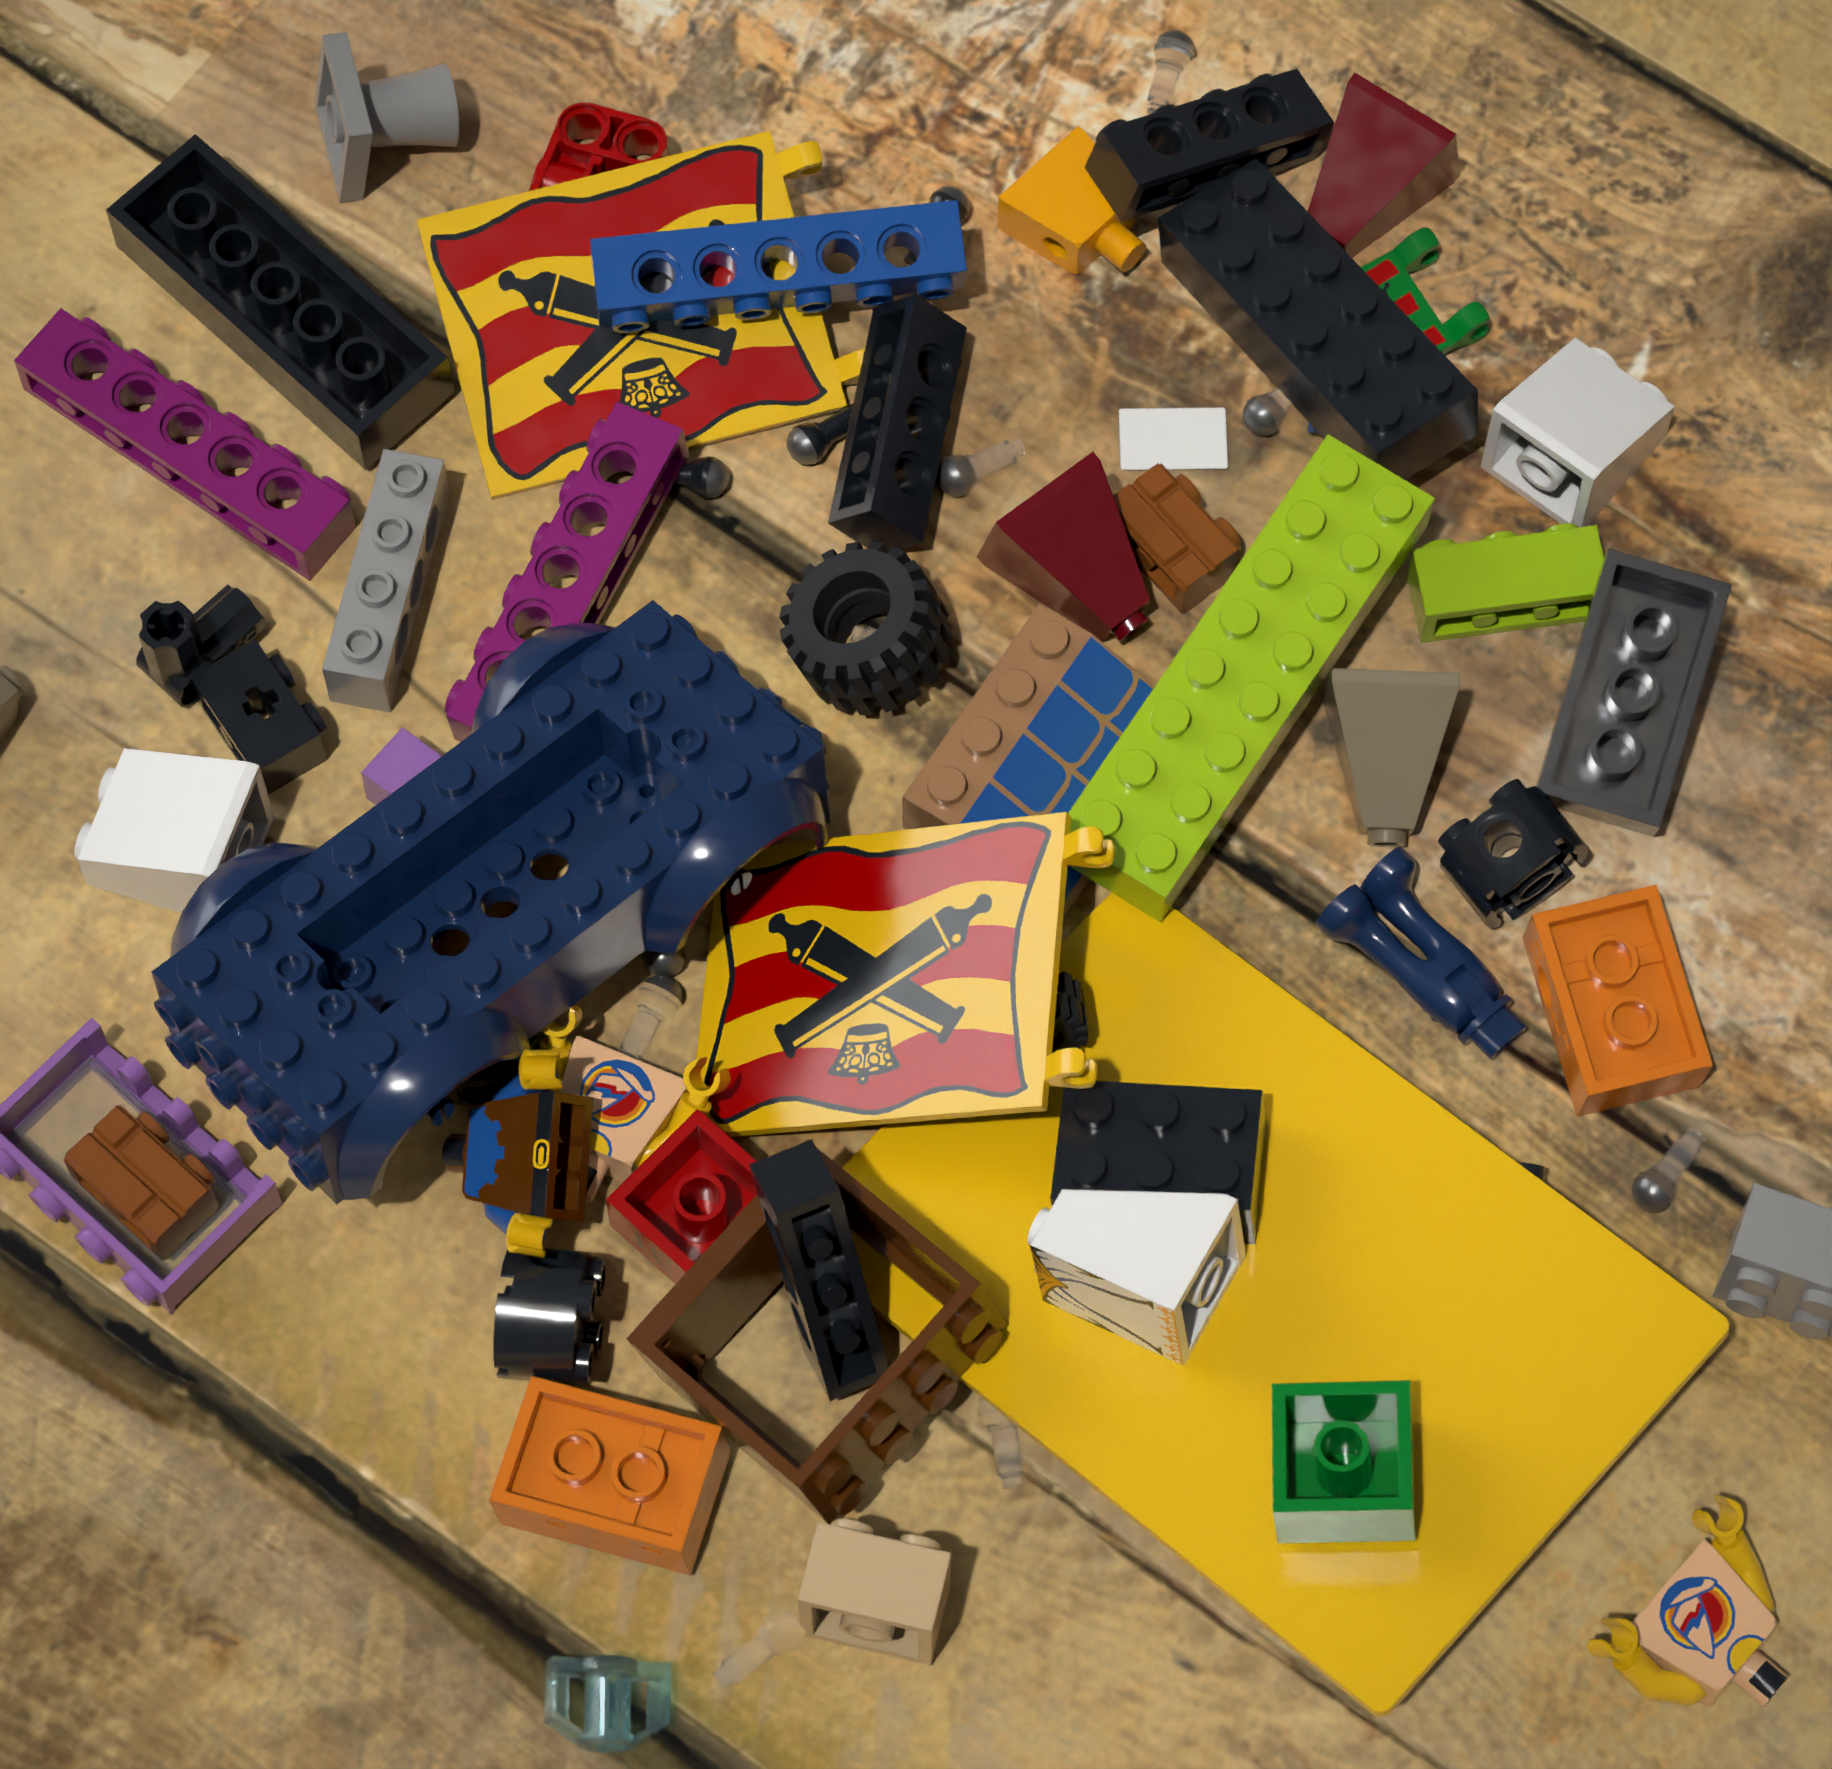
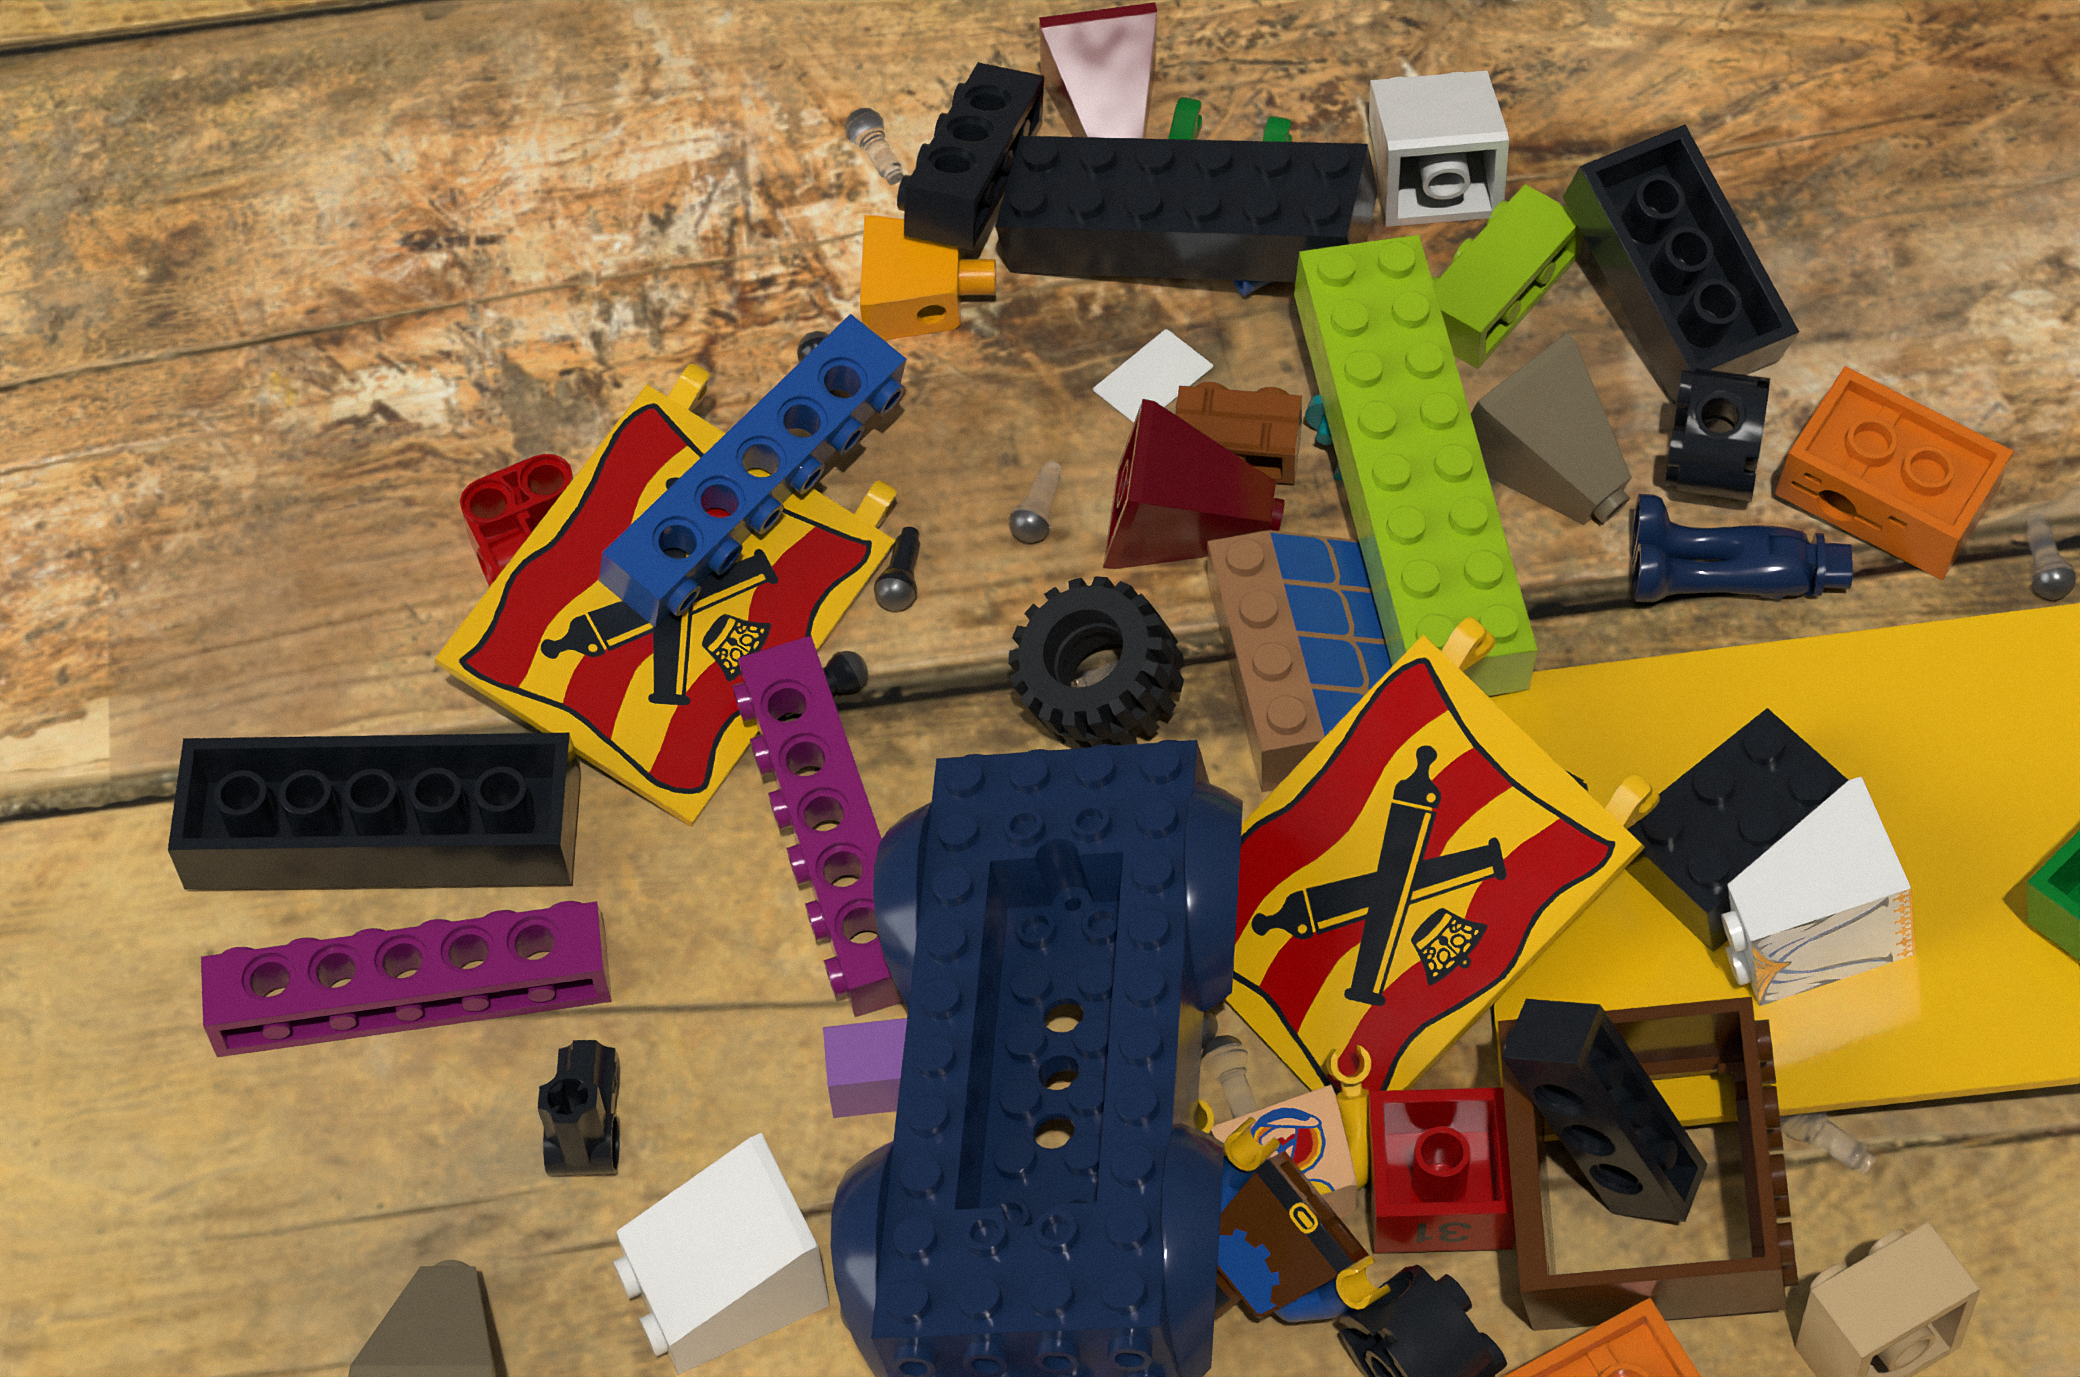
camera: 40 degrees left, 10 degrees down
(235, 695) = (685, 1119): black brick -> none
(378, 113) = (299, 632): light grey plant -> none
(386, 580) = (685, 941): light grey brick -> none
(898, 424) = (957, 514): black brick -> none
(1266, 412) = (1202, 304): piece -> none

